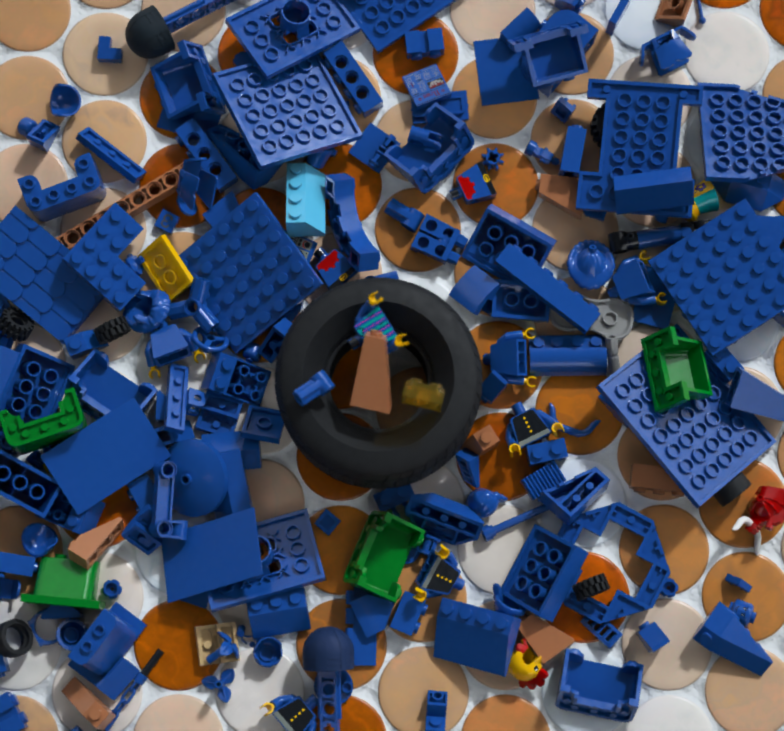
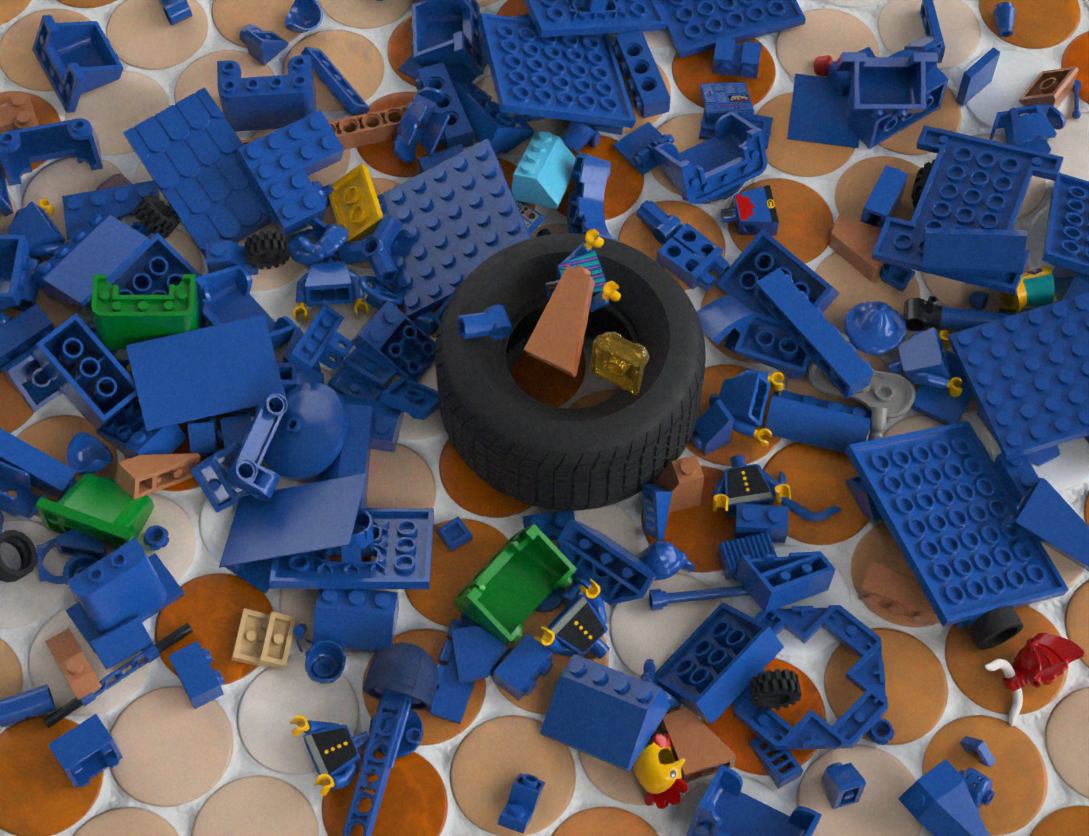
camera: 15 degrees right, 20 degrees down
(119, 502) = (203, 435): none -> blue slope
(167, 221) = (376, 162): blue tile -> none
(180, 686) = (196, 674): none -> blue brick
(212, 682) = (245, 684): blue plant -> none
(225, 649) = (270, 636): blue plant -> none
(425, 137) = (709, 145): blue hinge -> none
(494, 27) = (822, 65): none -> red piece
(494, 154) = (784, 190): blue gear -> none
(540, 153) = (835, 192): blue piece -> none
(563, 109) = (883, 157): blue tile -> none
(675, 369) = (954, 457): green windscreen -> none

